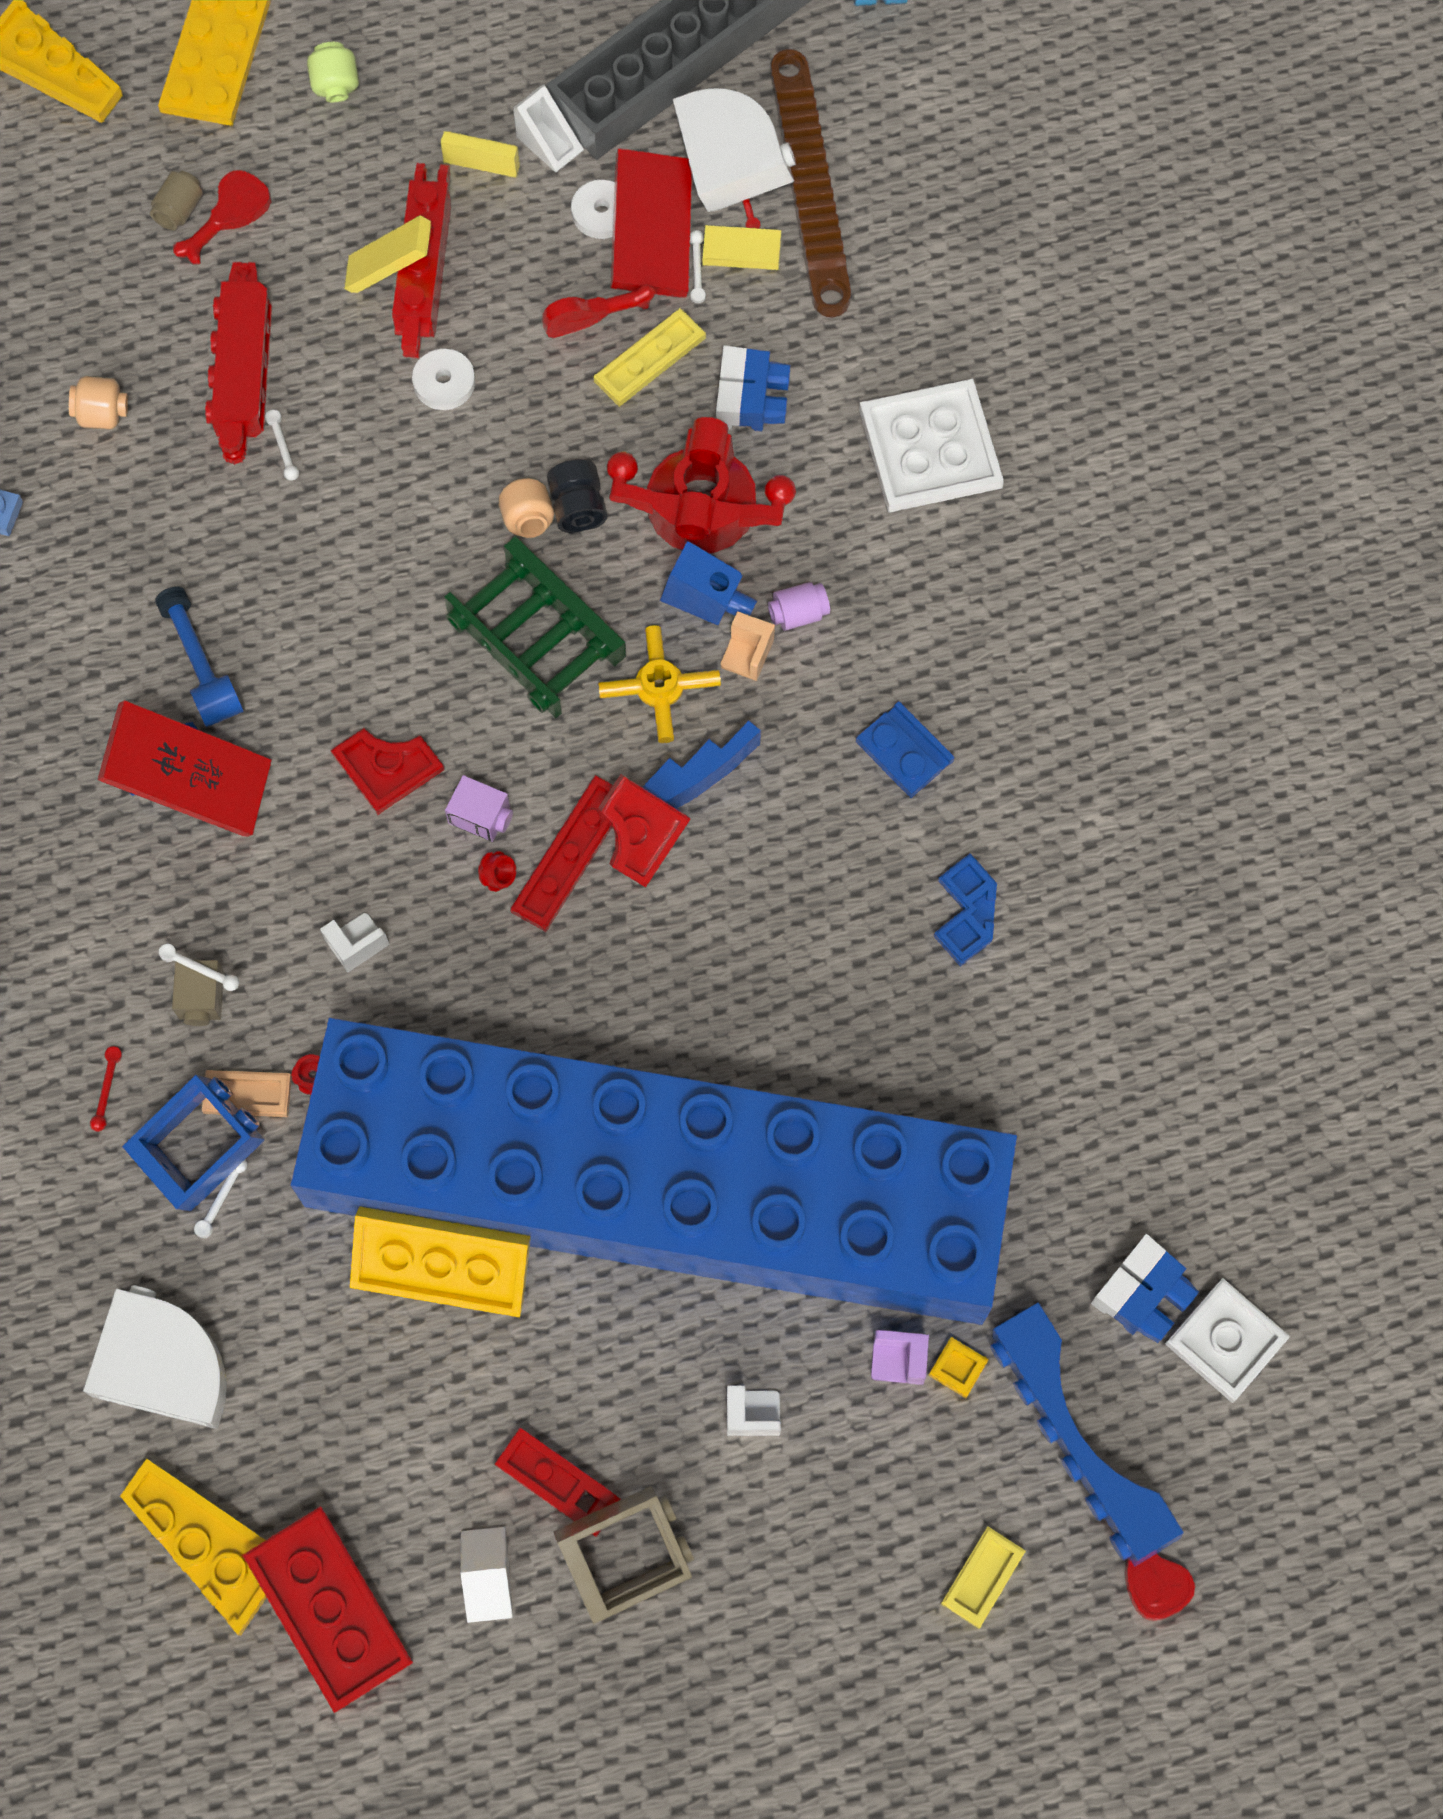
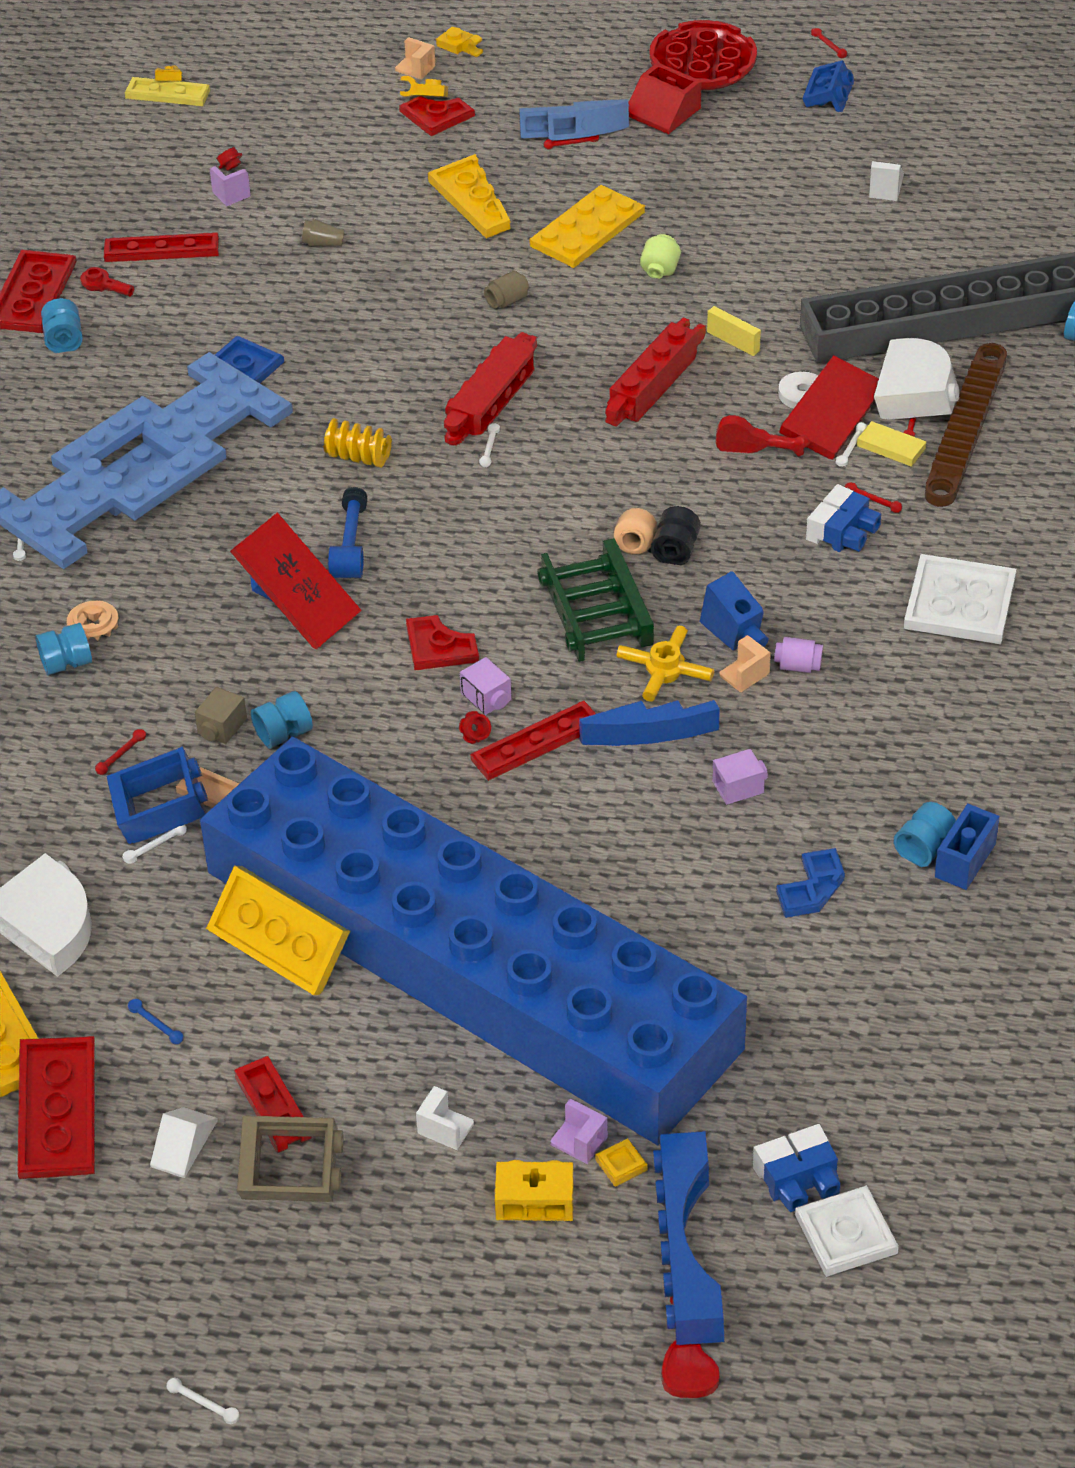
camera: 30 degrees right, 25 degrees down
(97, 402) = (378, 376): light nougat head -> none
(129, 518) = (356, 444): none -> yellow piece
(168, 954) = (213, 679): white hinge -> none
(240, 202) = (550, 306): red piece -> none
(274, 964) = (285, 718): none -> dark azure wheel
(329, 1426) = (136, 1006): none -> blue hinge
(355, 940) = (347, 734): white panel -> none
(388, 254) = (628, 356): light yellow tile -> none
(443, 363) = (615, 447): white piece -> none
(545, 130) = (788, 330): white slope -> none
(642, 827) = (595, 734): red tile -> none
(649, 357) = (783, 482): light yellow tile -> none
(694, 516) = (770, 560): red piece -> none
(728, 331) = (895, 506): none -> red hinge
(822, 806) = (739, 776): none -> lavender brick
(904, 749) = (825, 770): blue plate -> none
(920, 1454) = (534, 1190): none -> yellow brick
(983, 1577) = (553, 1304): light yellow tile -> none
(1059, 793) = (924, 833): none -> dark azure wheel
(1112, 794) = (966, 846): none -> blue brick

